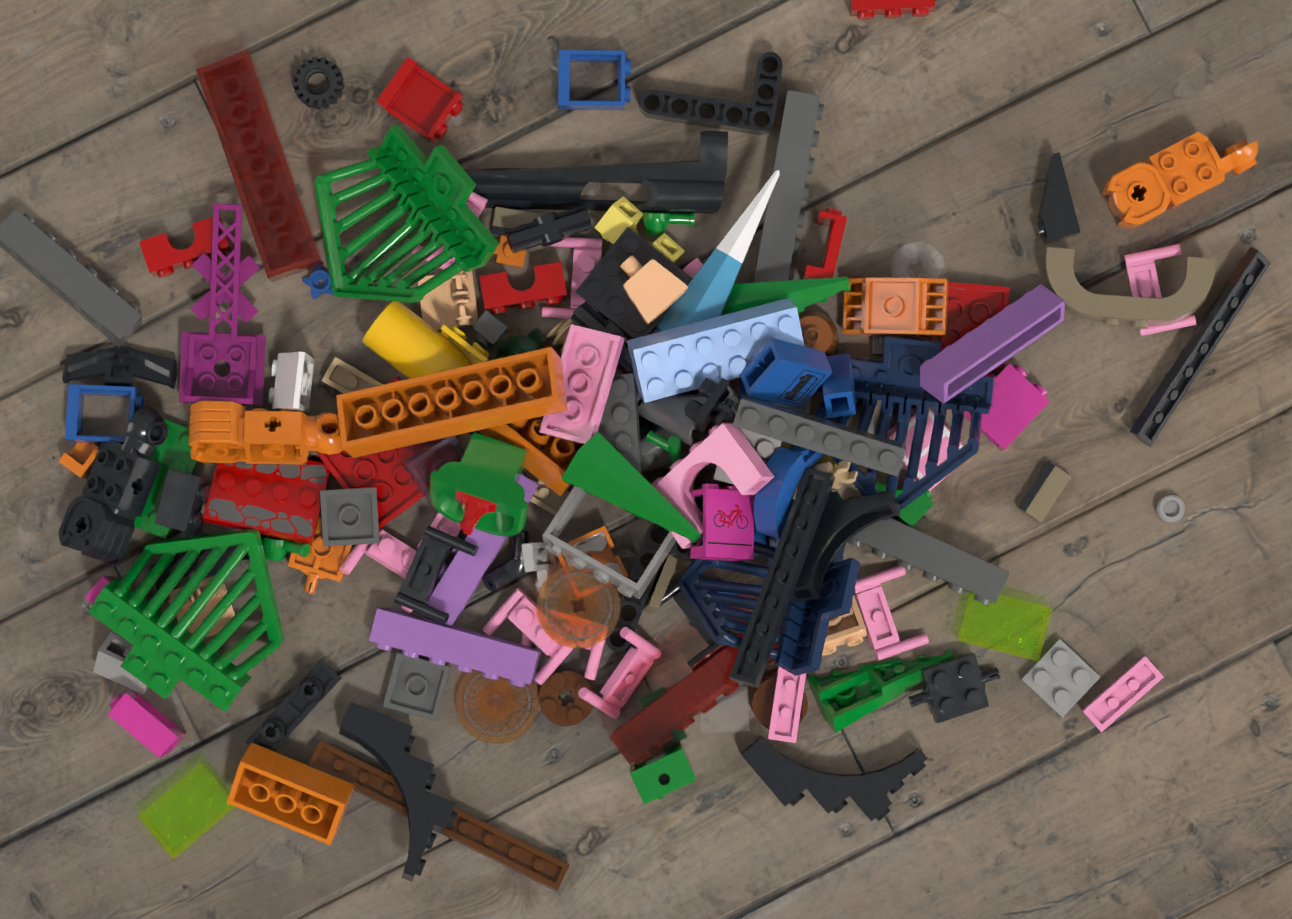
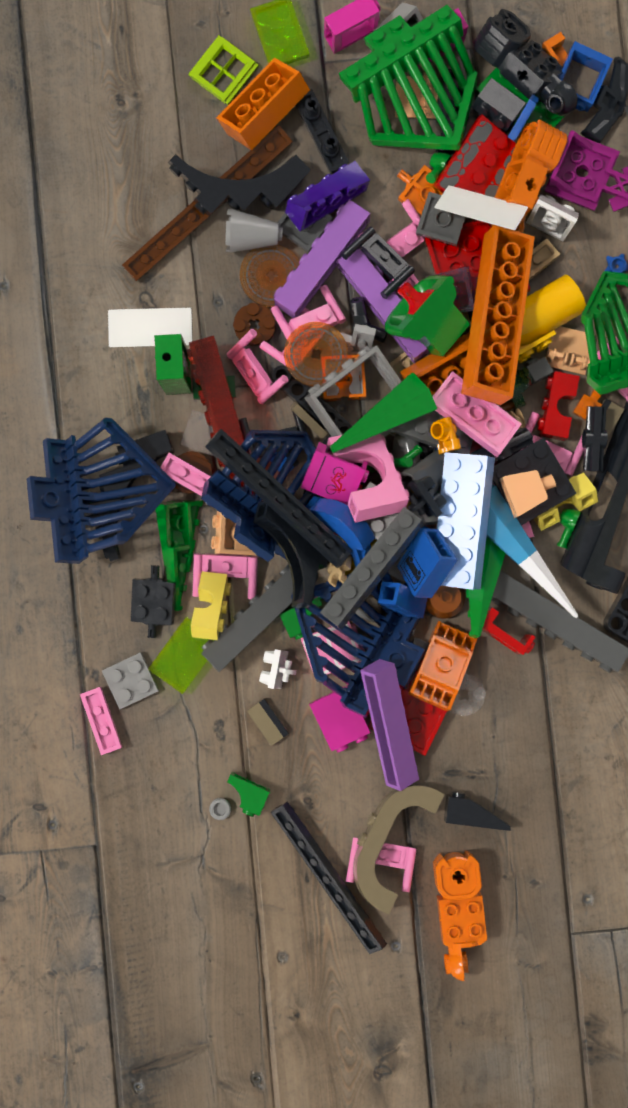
camera: 110 degrees right, 0 degrees up
(186, 465) = (523, 117): none -> blue tile
(253, 886) = (208, 58): none -> lime piece
(324, 473) = (481, 207): none -> white sticker
(374, 669) = (327, 195): none -> dark purple wedge
(456, 746) = (250, 232): none -> light grey cone
(618, 826) = (139, 326): none -> white sticker
(620, 412) = (445, 432): none -> light orange plate
(879, 845) = (62, 499): none -> dark blue plate
(955, 609) = (208, 621): none -> light yellow arch
(975, 501) = (279, 671): none -> white hips
(1137, 477) = (252, 794): none -> green arch

